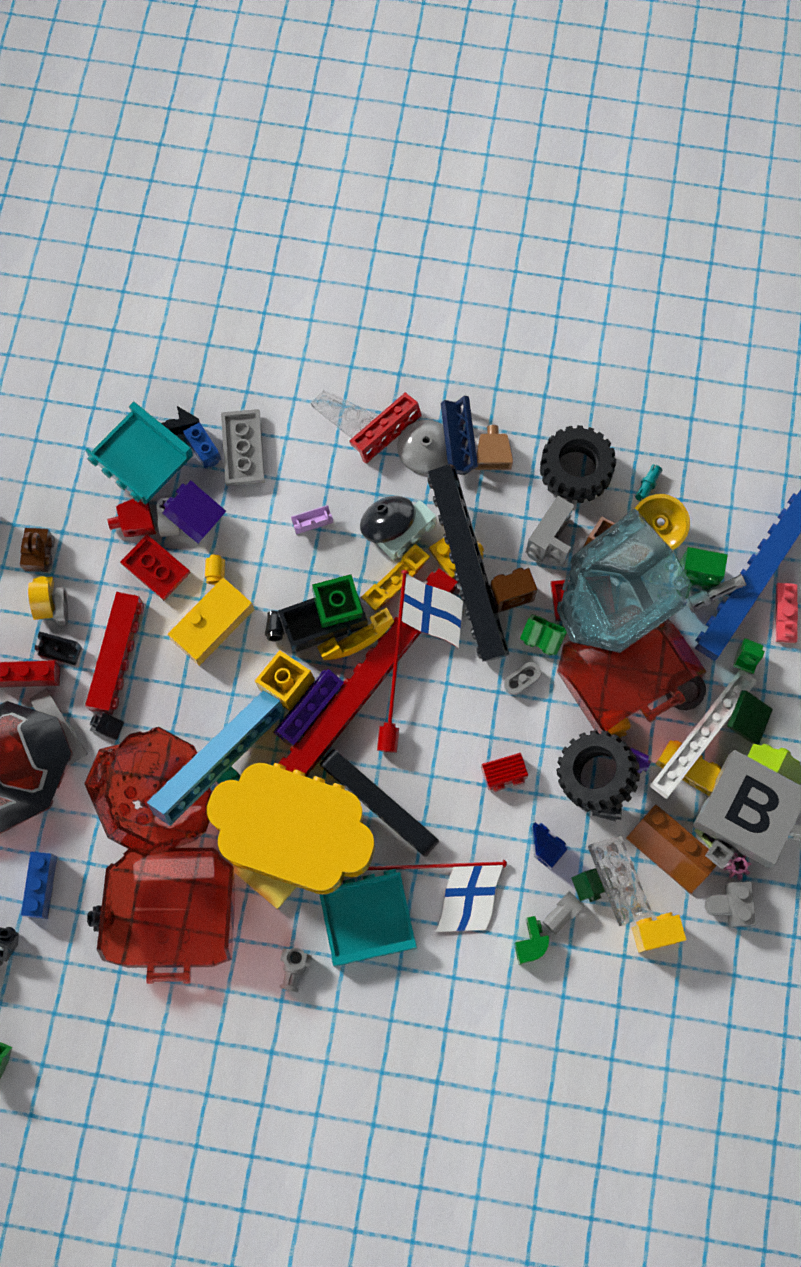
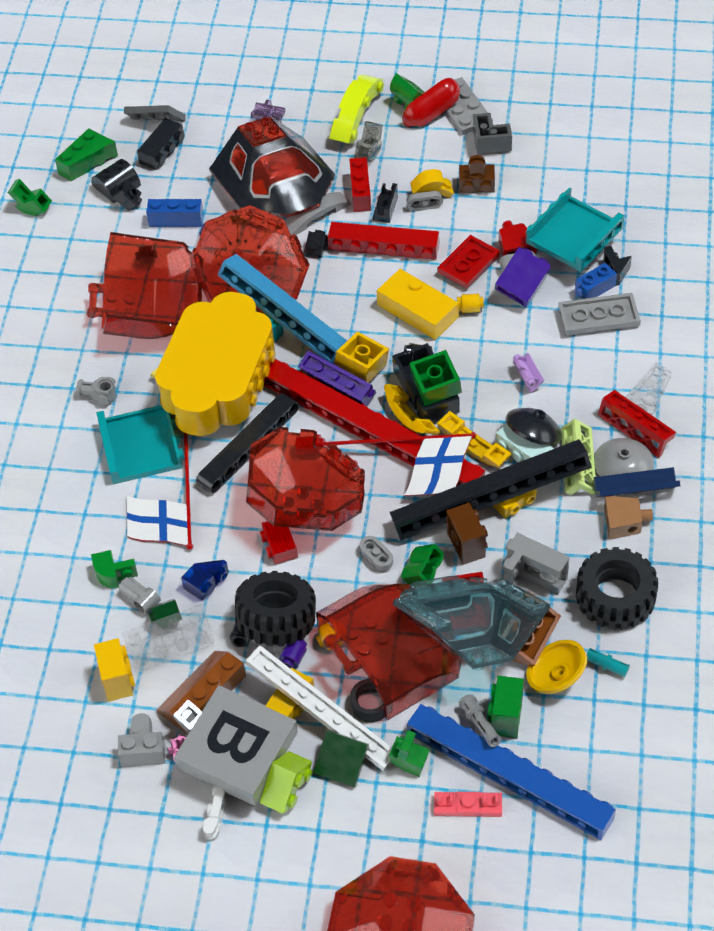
camera: 90 degrees right, 20 degrees down
(407, 484) = (570, 433): none -> yellowish green fence
(456, 738) = (303, 483): none -> clear red windscreen

